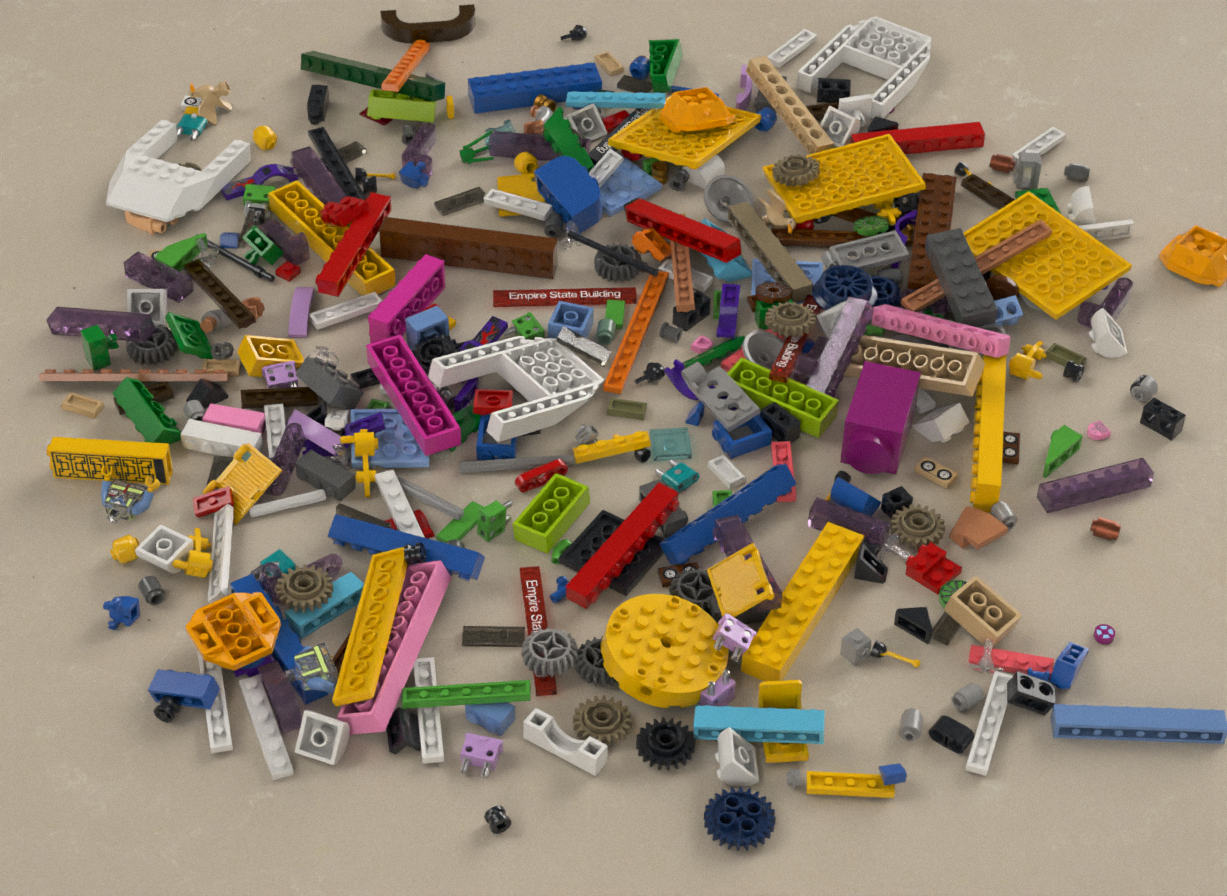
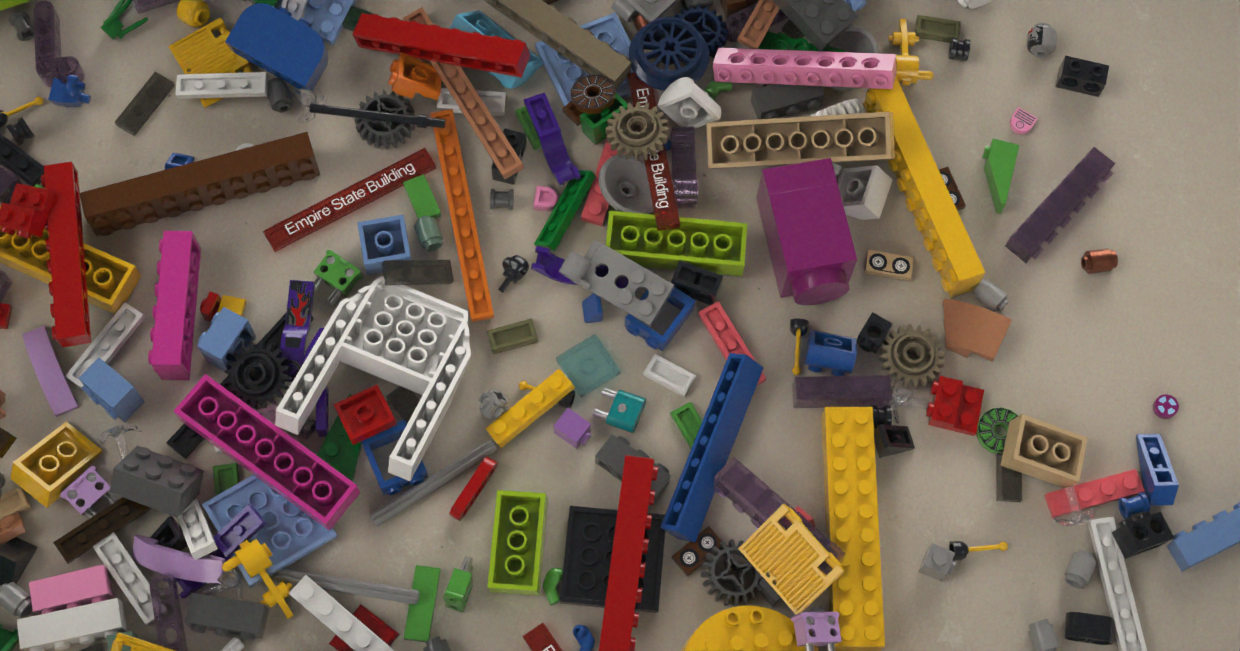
camera: 30 degrees left, 25 degrees up
(333, 328) = (110, 391): none -> medium blue brick
(634, 470) = (573, 428): none -> medium lavender brick
(841, 346) = (714, 151): clear purple brick -> none
(915, 622) = (979, 493): black slope -> none

